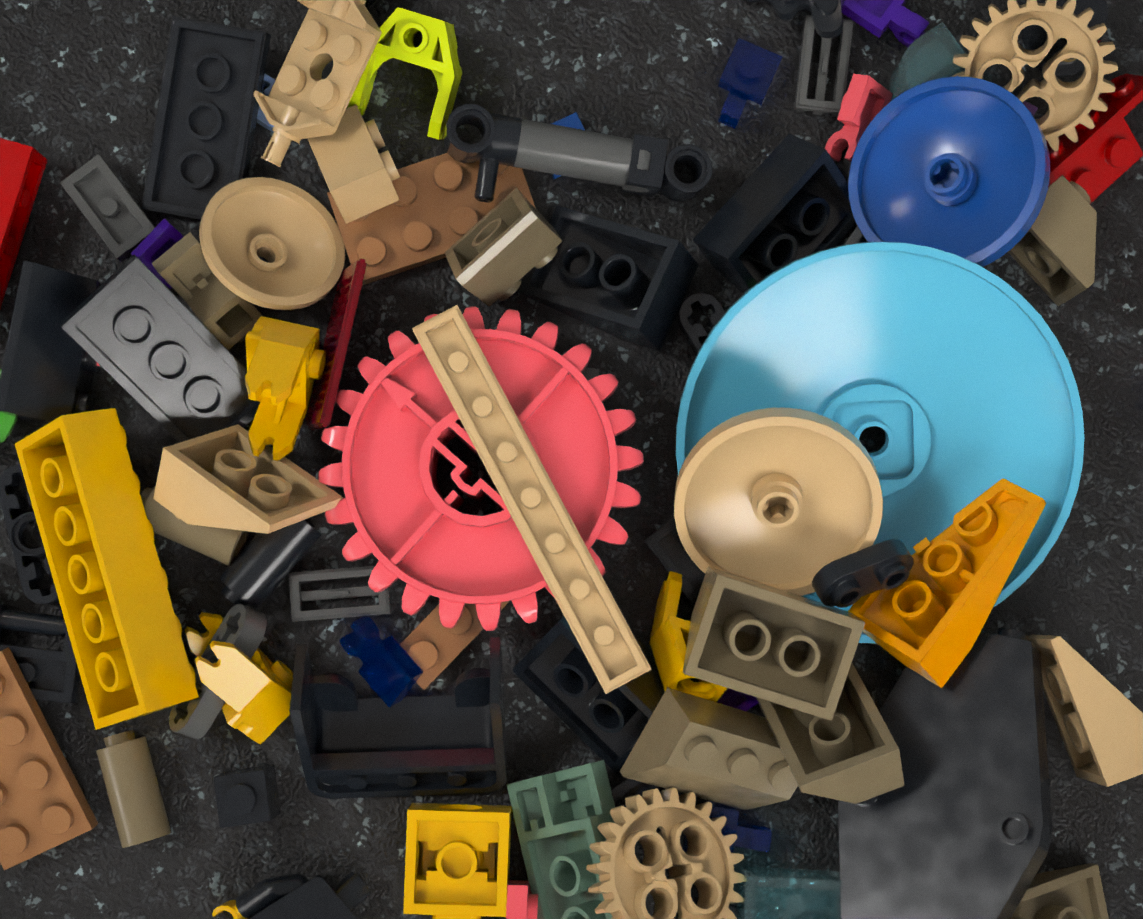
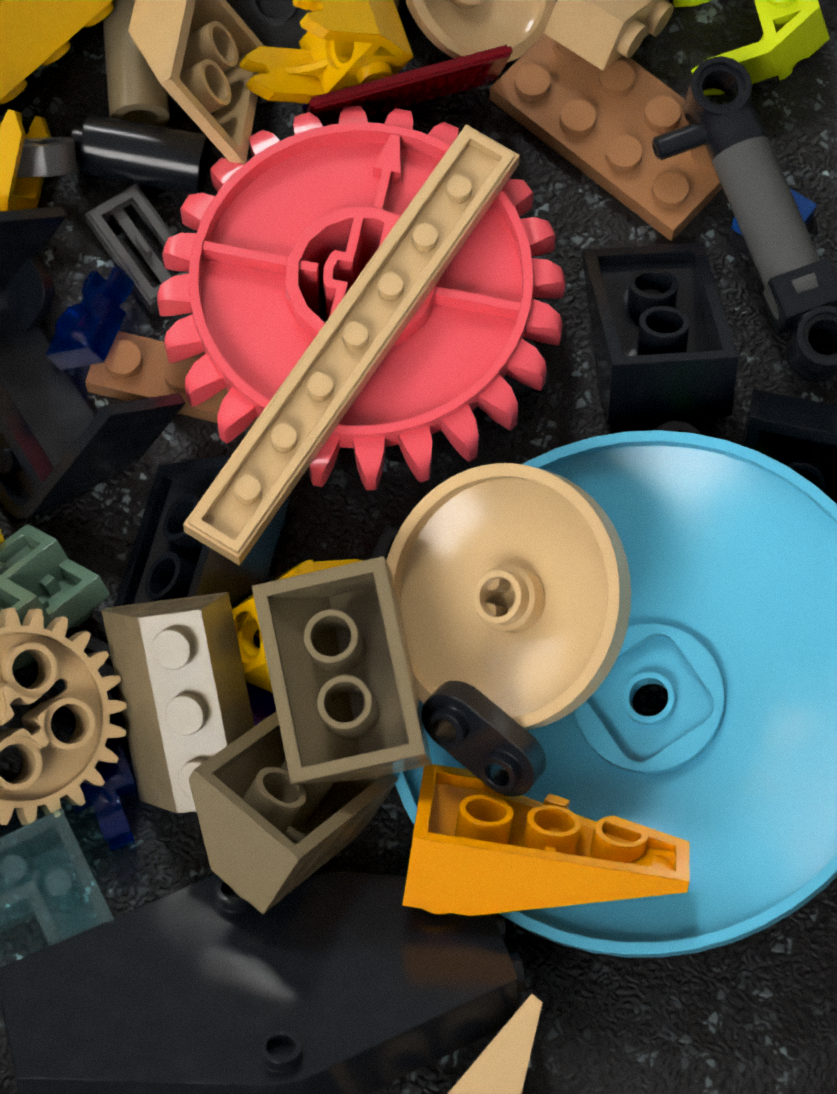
camera: 60 degrees right, 15 degrees down
(503, 249) = (613, 197): dark tan slope -> none

